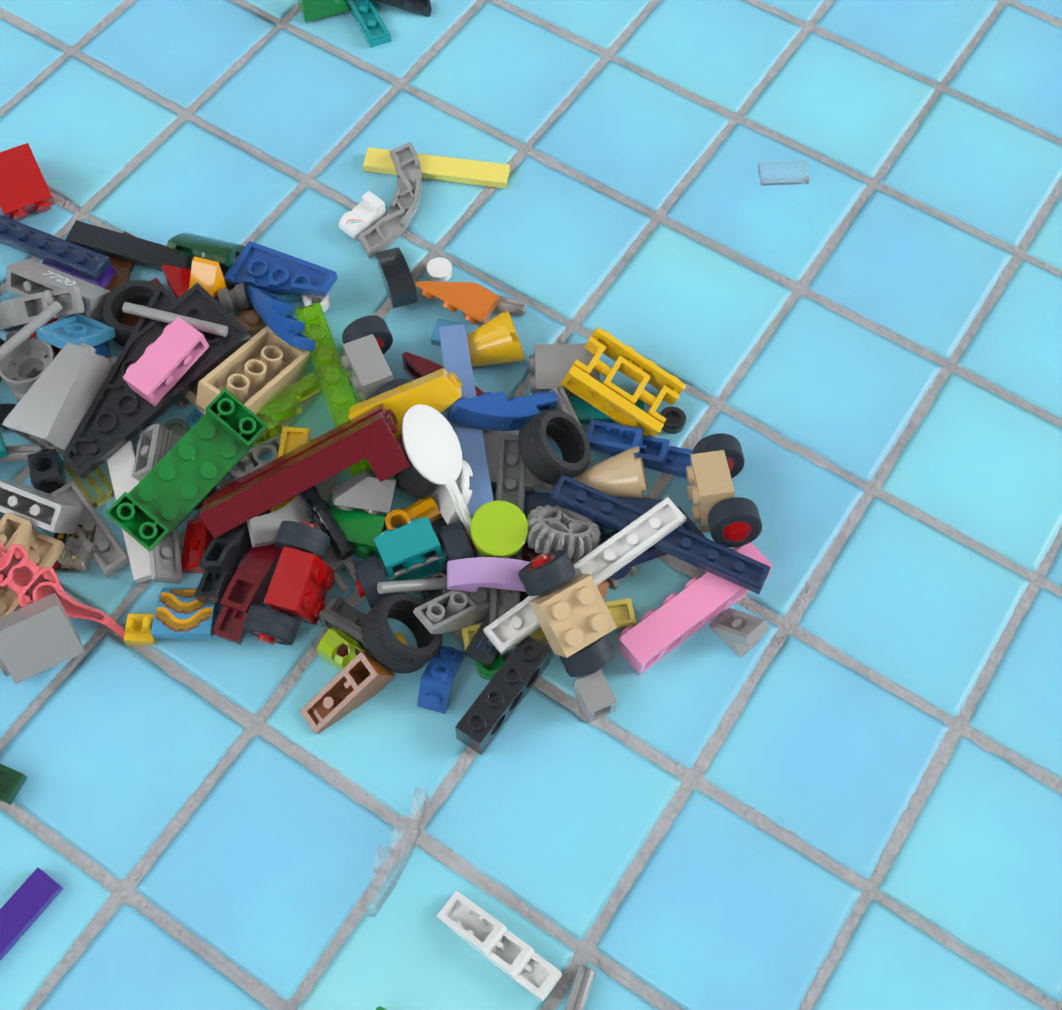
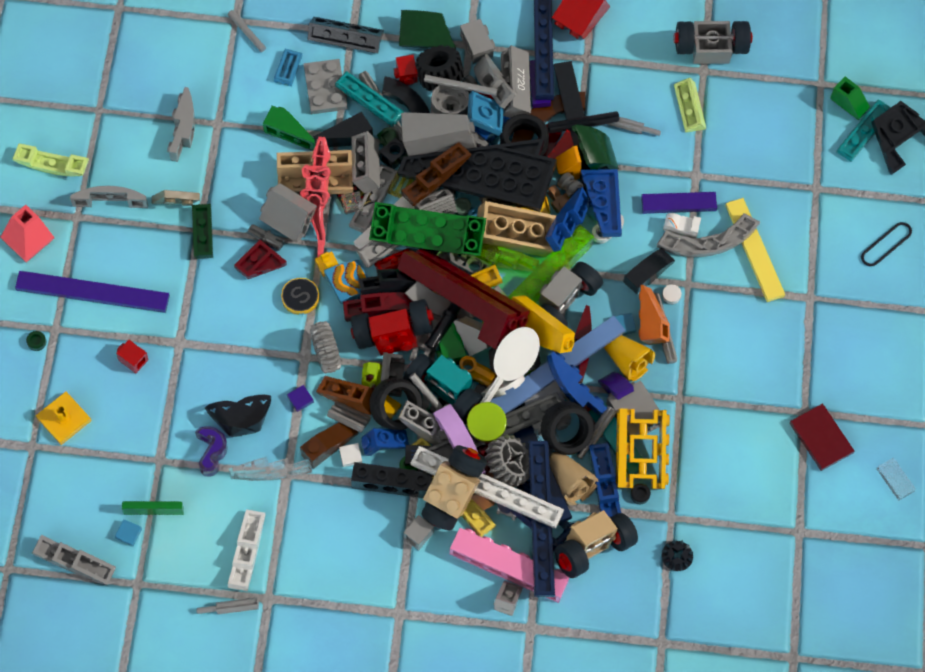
camera: 60 degrees right, 5 degrees up
(16, 467) = (387, 135): none -> dark green tile
(47, 689) = (266, 236): none -> dark grey axle
(77, 715) = (259, 260): none -> dark red wing
(99, 972) = (132, 356): none -> red brick
(116, 427) = (435, 175): none -> reddish brown slope
(160, 78) = (712, 40): none -> brick
(160, 250) = (593, 120): none -> black axle
(164, 686) = (300, 296): none -> black tile
(166, 361) = (491, 174): bright pink brick -> none
(168, 317) = (523, 162): light grey bar -> none
(199, 209) = (634, 126): none -> light grey axle
(218, 144) = (689, 105): none -> yellowish green slope
(265, 683) = (325, 347): none -> light grey gear
(292, 859) = (240, 418): none -> black piece
(313, 759) = (300, 398): none -> dark purple tile
(320, 908) = (216, 450): none -> clear purple animal
(329, 210) = (679, 202): none -> dark purple tile
(379, 706) = (348, 416): none -> light grey tile
(400, 752) = (326, 443): none -> reddish brown slope
(434, 732) = (350, 454): none -> white tile
(515, 53) = (898, 224): none -> black piece
(523, 372) = (616, 384): none -> dark purple slope
(698, 213) = (821, 437): none -> dark red tile
(765, 426) = (677, 564): none -> black gear

